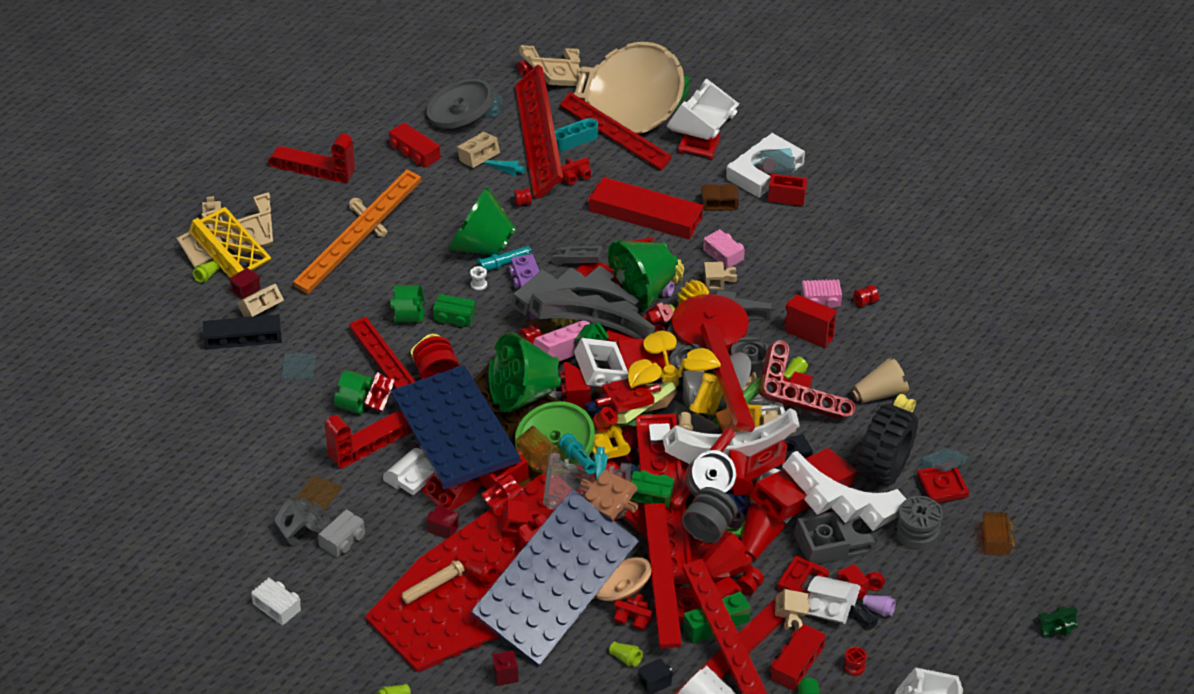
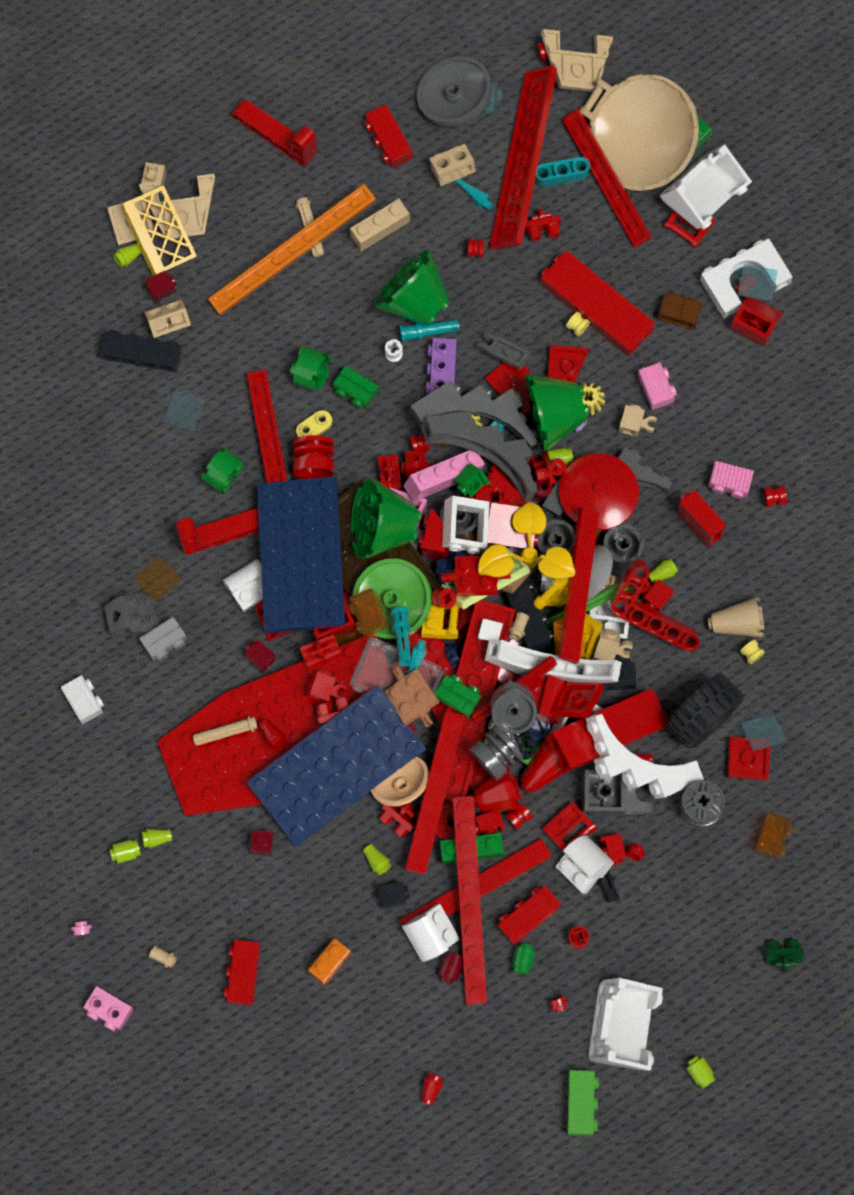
camera: 20 degrees right, 30 degrees up
(379, 392) = (247, 478): red hips -> none
(430, 200) = (380, 225): none -> tan brick
(635, 225) = (578, 324): none -> light yellow wheel
(692, 289) = (598, 443): yellow gear -> none
(792, 606) = (543, 862): tan brick -> none
(880, 604) = (631, 883): lavender cone -> none

